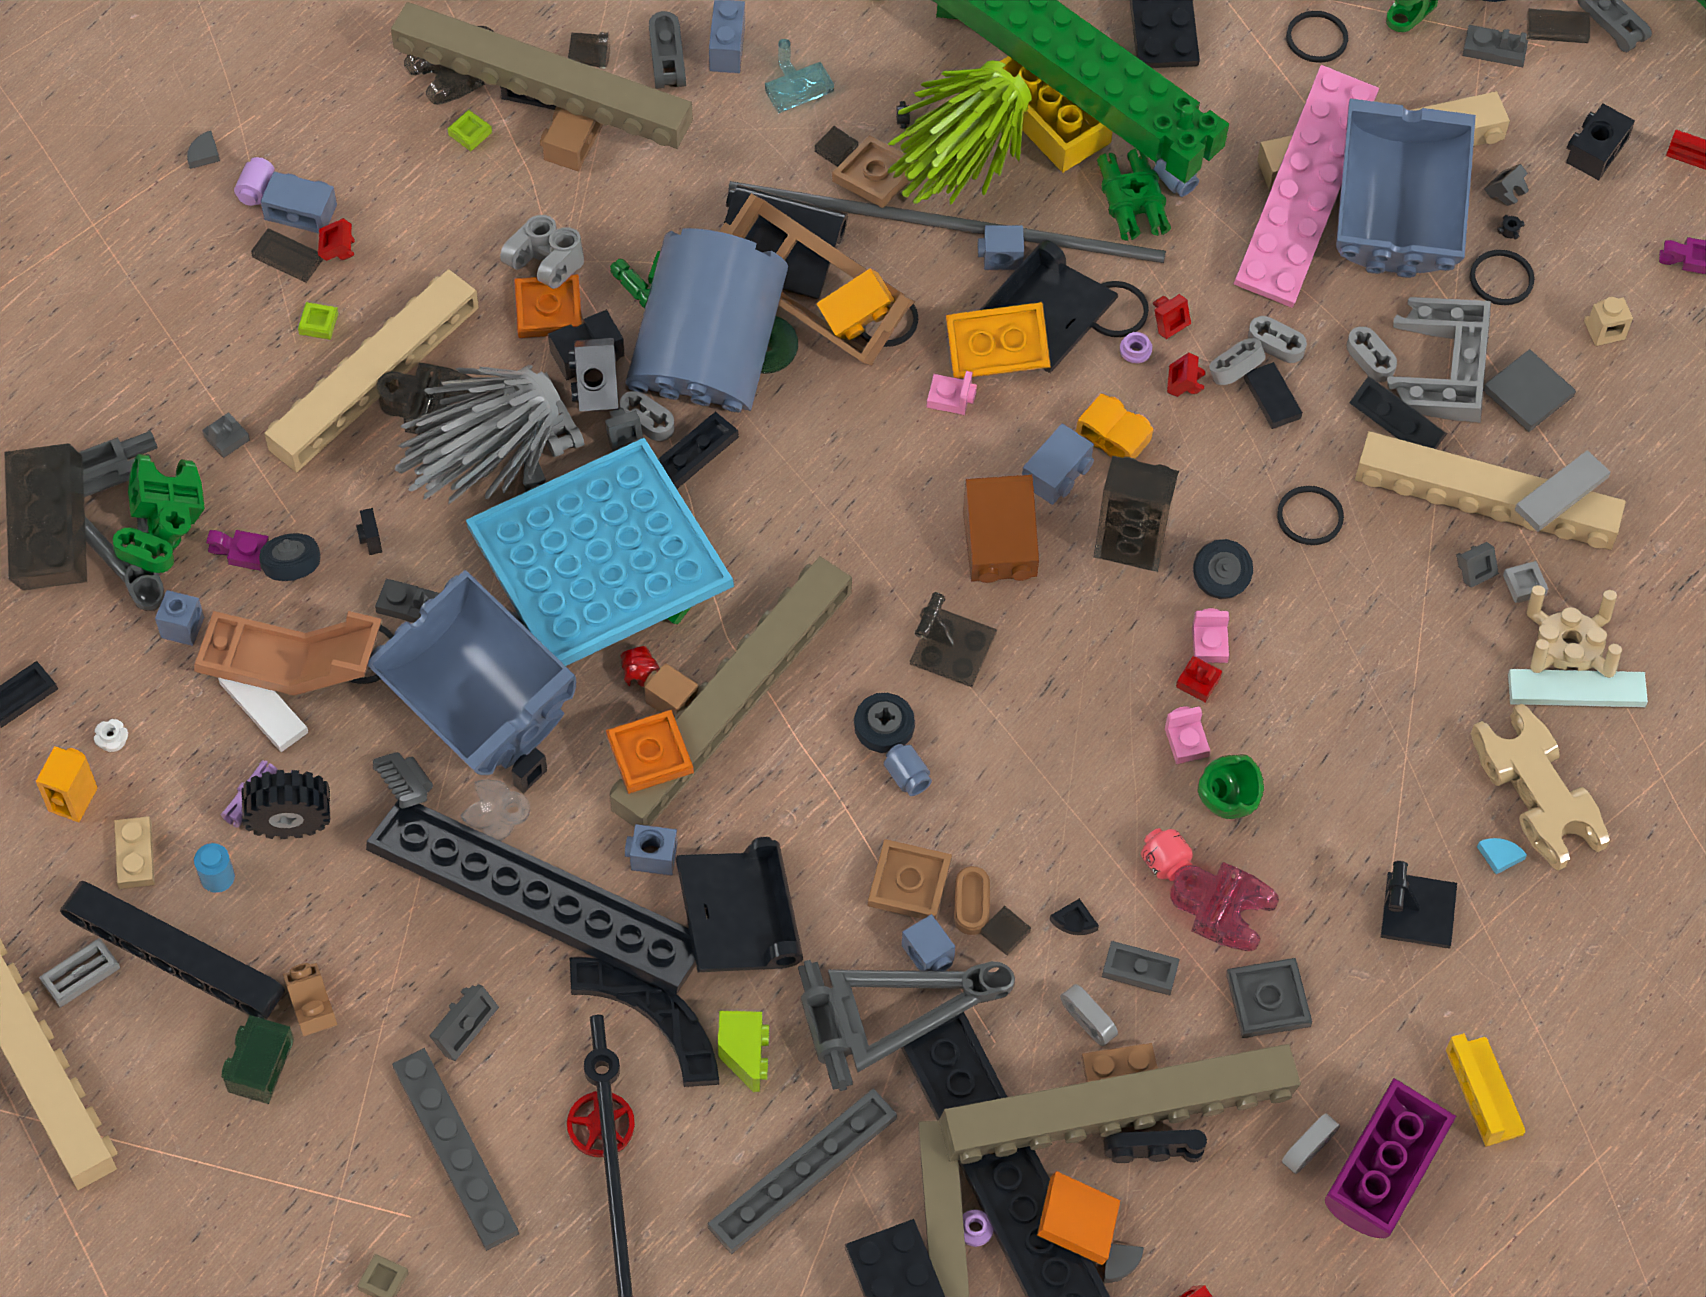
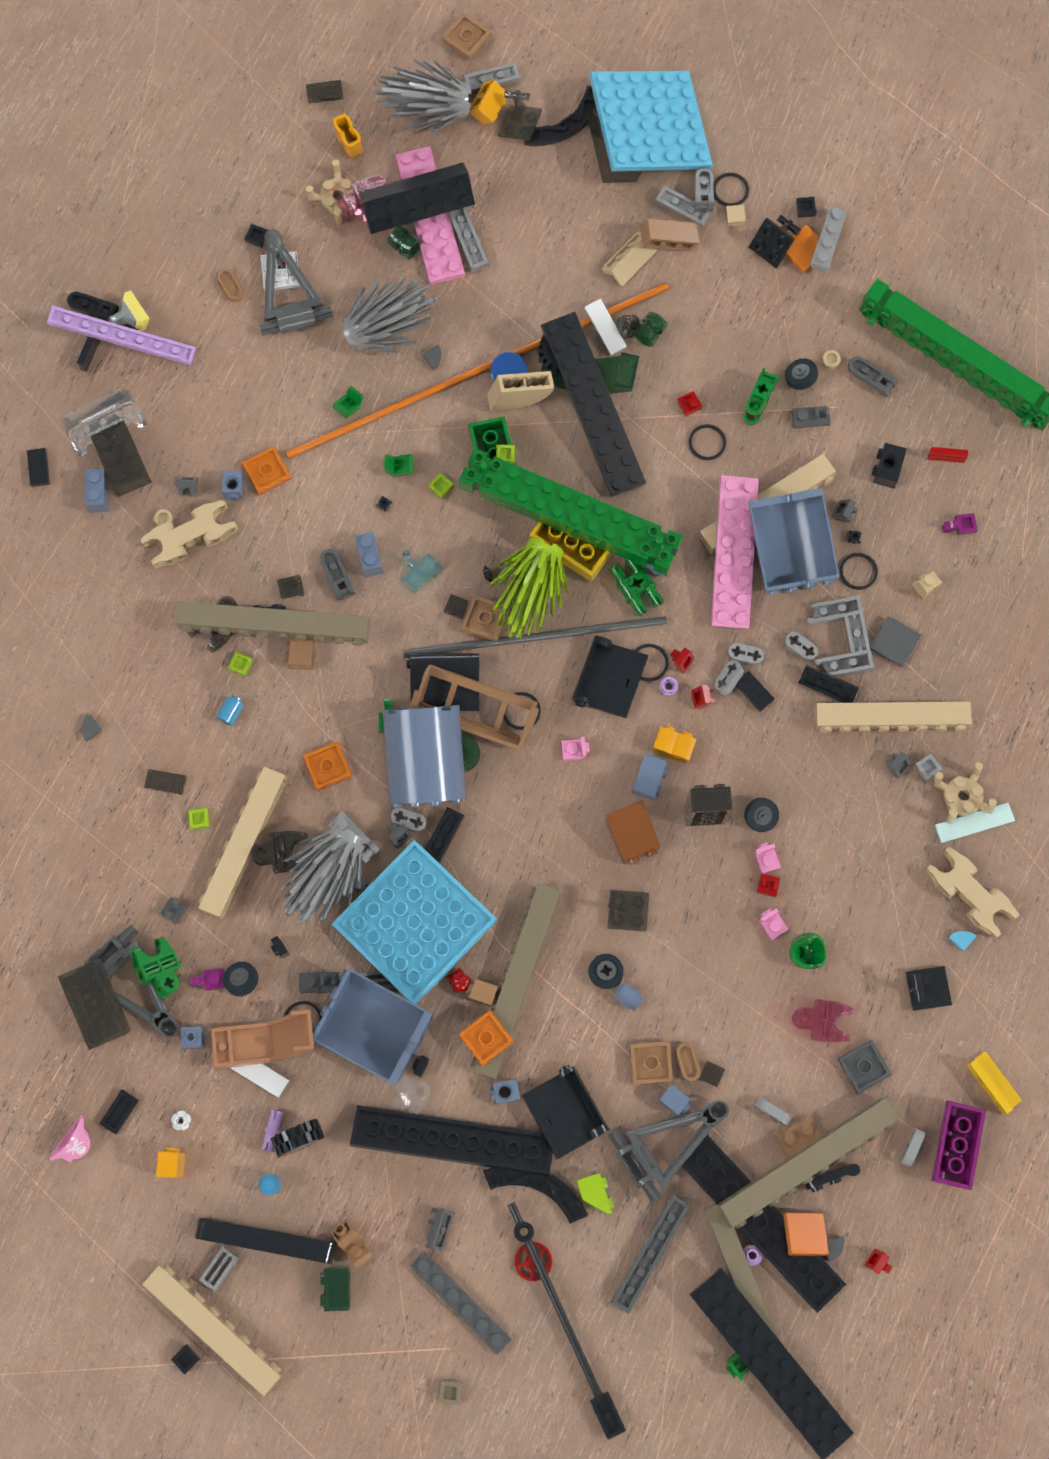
camera: 15 degrees left, 15 degrees up
(134, 852) = (221, 1187): tan plate -> none
(143, 550) = (157, 1009): green beam -> none
(253, 181) = (129, 741): lavender brick -> none
(298, 202) = (159, 746): sand blue brick -> none
(336, 240) = (190, 765): red tile -> none
(404, 778) = (358, 1091): dark grey piece -> none
(427, 184) = (230, 710): none -> dark azure brick
(541, 240) = (326, 740): light grey piece -> none
(594, 327) = (359, 787): black brick -> none
(598, 355) = (368, 799): brick -> none
(631, 281) = (370, 735): green axle -> none
(857, 305) = (507, 716): light orange brick -> none
(998, 340) = (592, 711): light orange tile -> none
(1002, 247) = (573, 646): sand blue brick -> none
(1074, 919) = (746, 1054): black tile -> none
(1140, 968) = (791, 1073): dark grey plate -> none
(1166, 853) = (784, 1000): coral head -> none
(1307, 541) = (800, 744): black piece -> none
(1558, 25) = (842, 391): clear smoke tile -> none
(1562, 491) = (935, 708): light grey tile -> none

